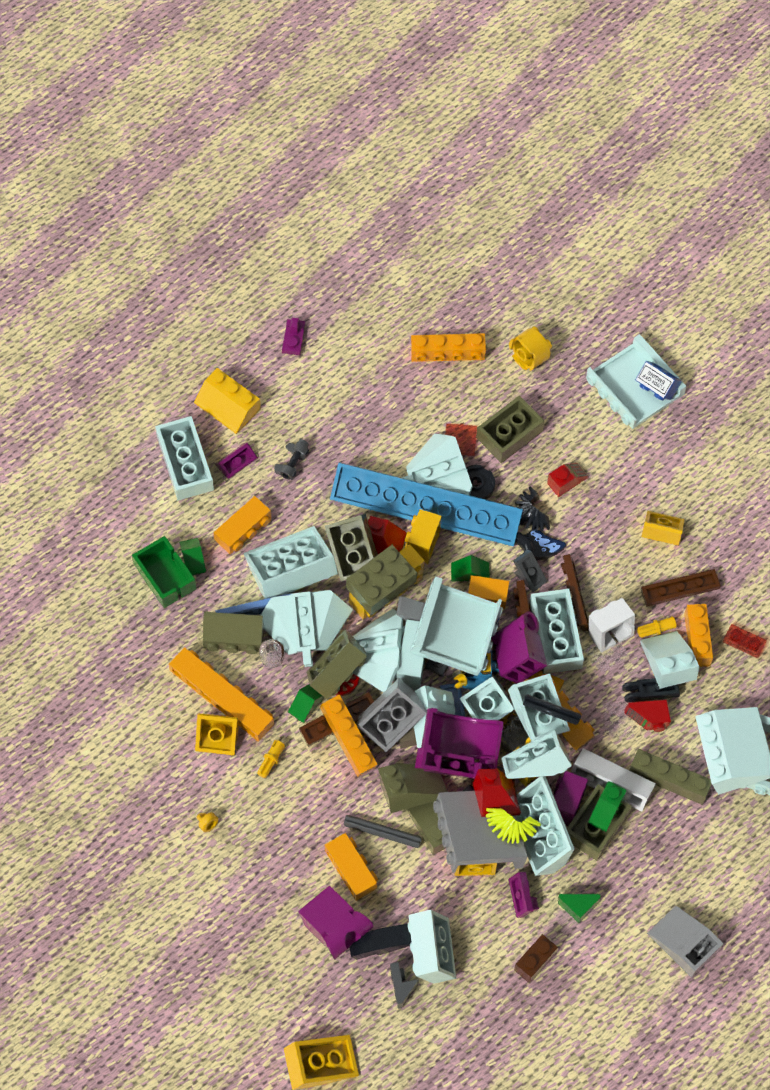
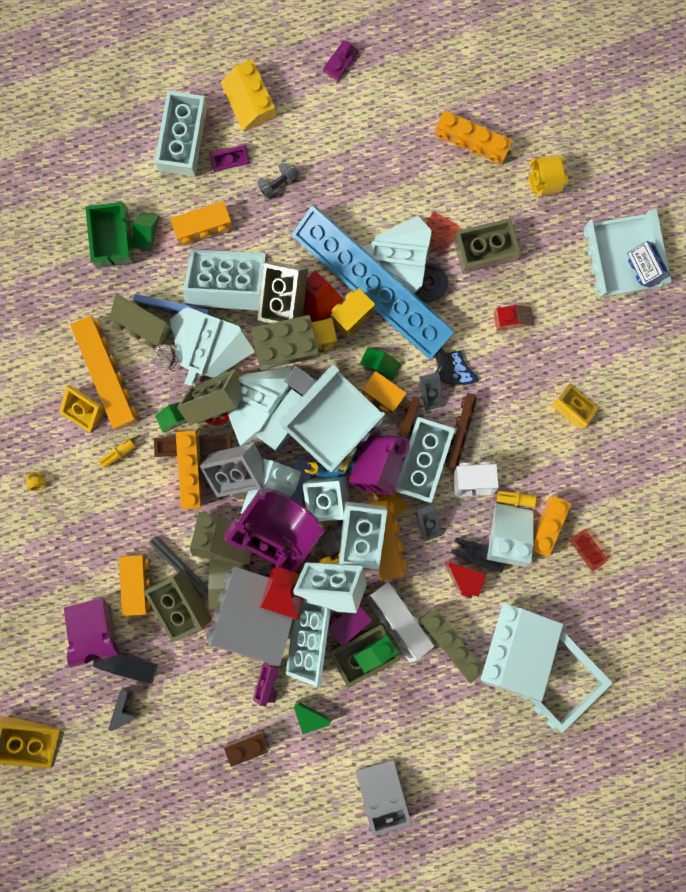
camera: 30 degrees right, 20 degrees up
(402, 862) = (178, 605): none -> olive slope
(431, 946) = (161, 696): light aqua brick -> none
(510, 826) = (277, 630): neon yellow hair -> none
(530, 513) = (461, 335): black hair -> none
(551, 709) = (370, 545): black axle -> none
(590, 681) = (429, 522): none -> dark grey slope
(680, 587) = (558, 472): reddish brown plate -> none

